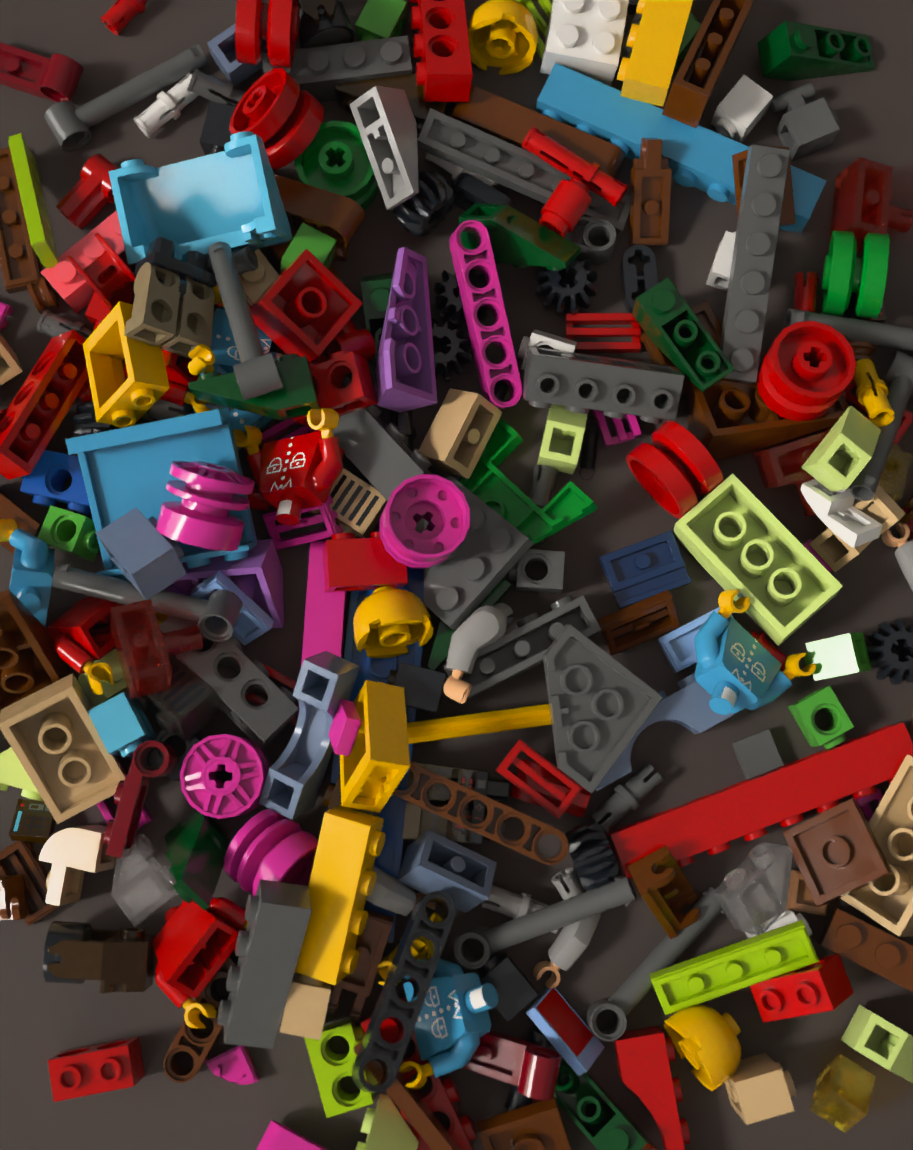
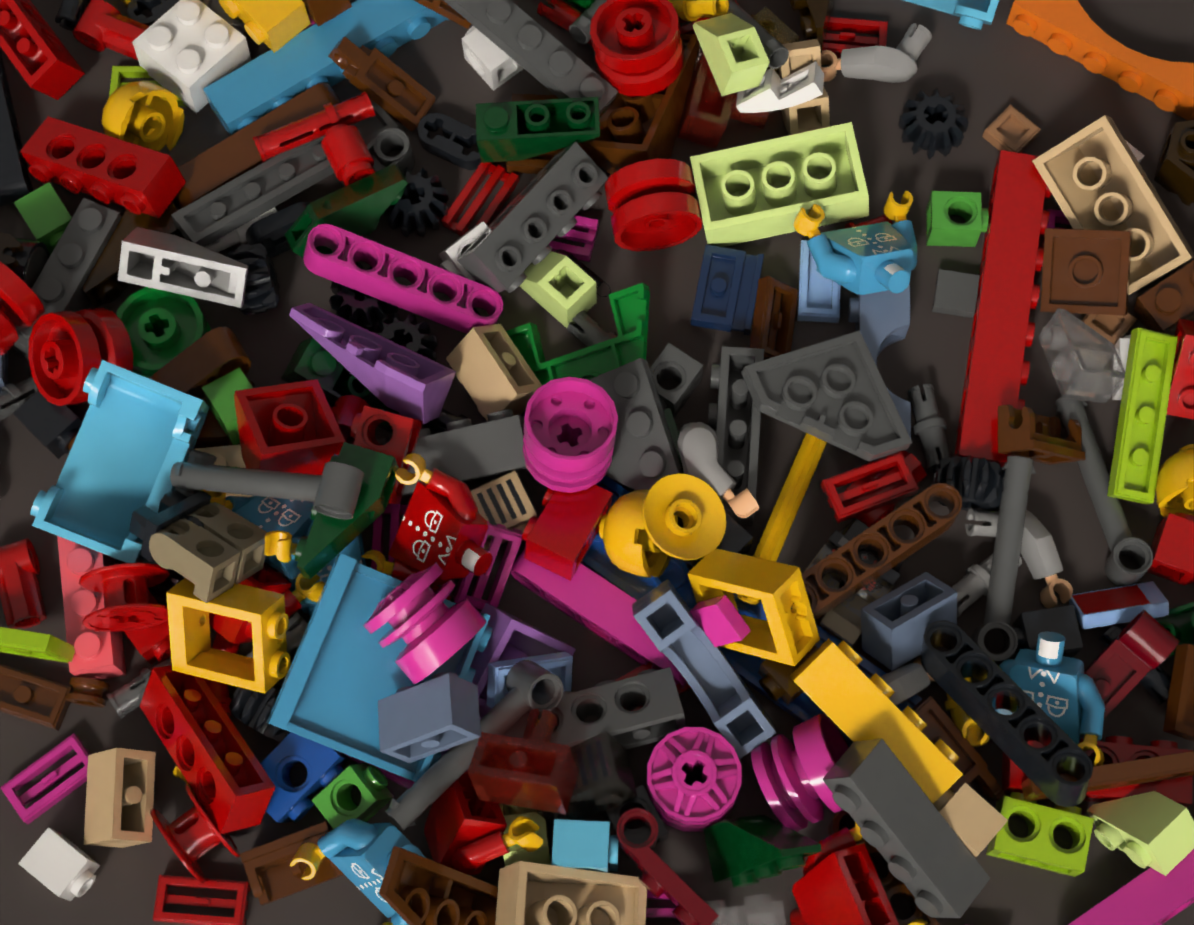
camera: 60 degrees left, 10 degrees down
(423, 665) = (697, 507): none -> yellow dish
(838, 656) = (908, 170): brick -> none

